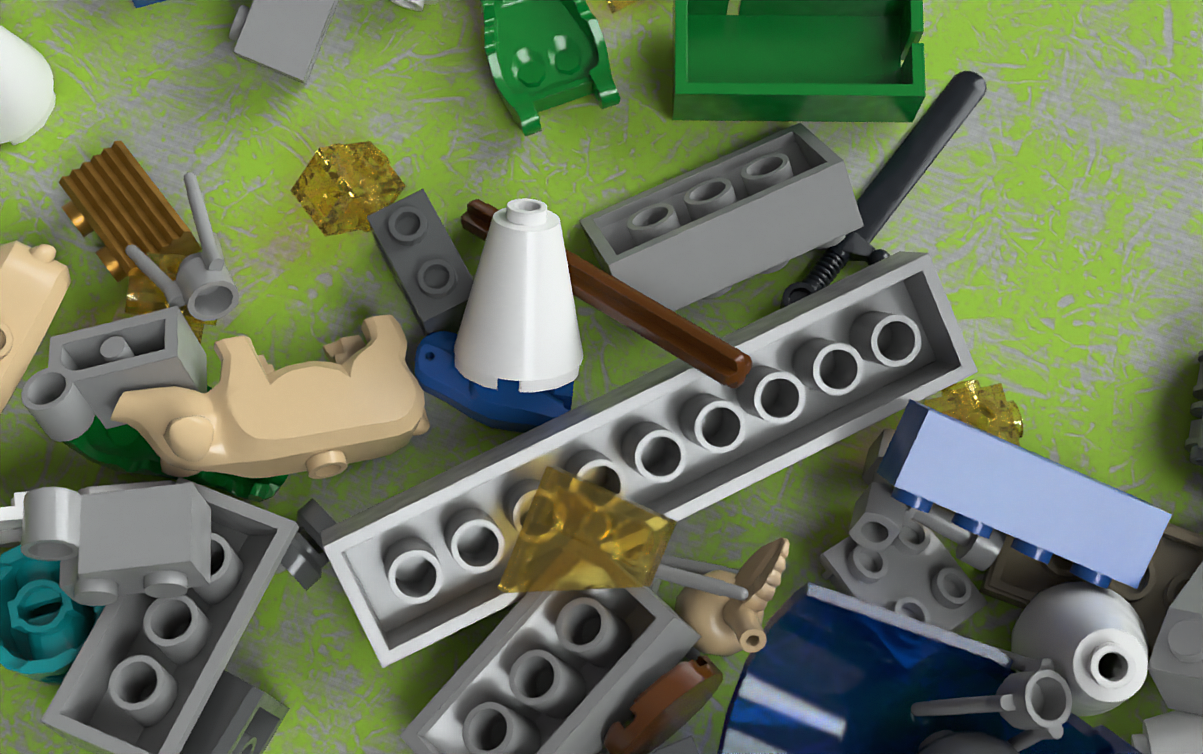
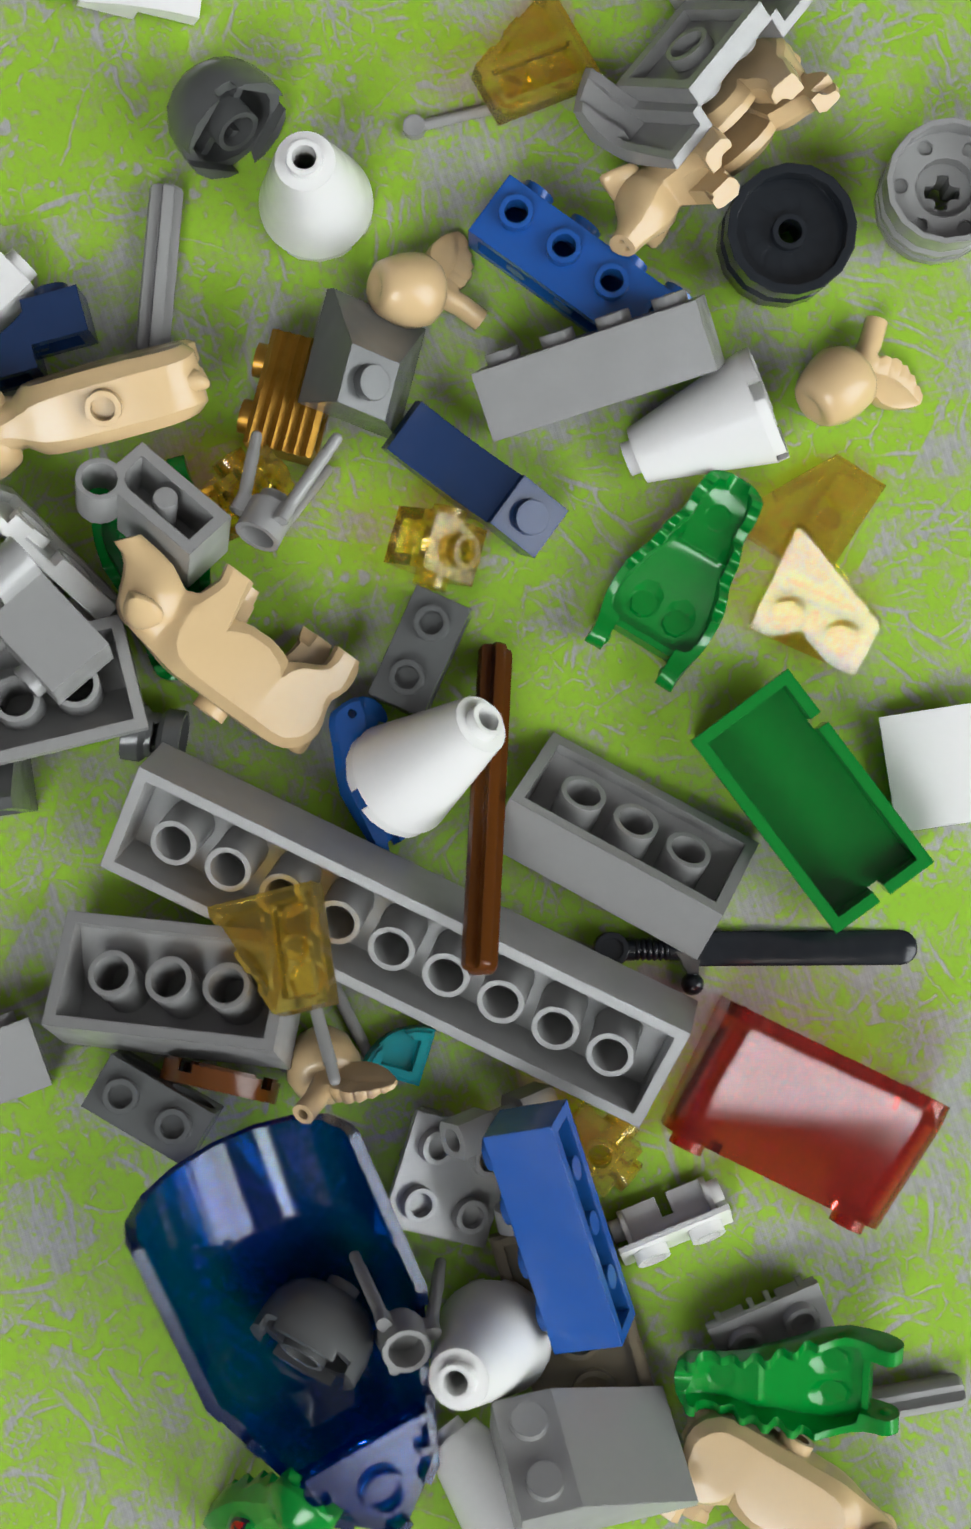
camera: 55 degrees right, 15 degrees up
(133, 51) = (417, 286): none -> tan piece
(150, 139) = (360, 365): none -> dark grey slope
(289, 130) = (475, 480): none -> dark blue slope
(754, 530) = (403, 1052): none -> teal tile
(1058, 234) = (801, 1115): none -> clear red windscreen
(1085, 397) = (692, 1218): none -> white hinge

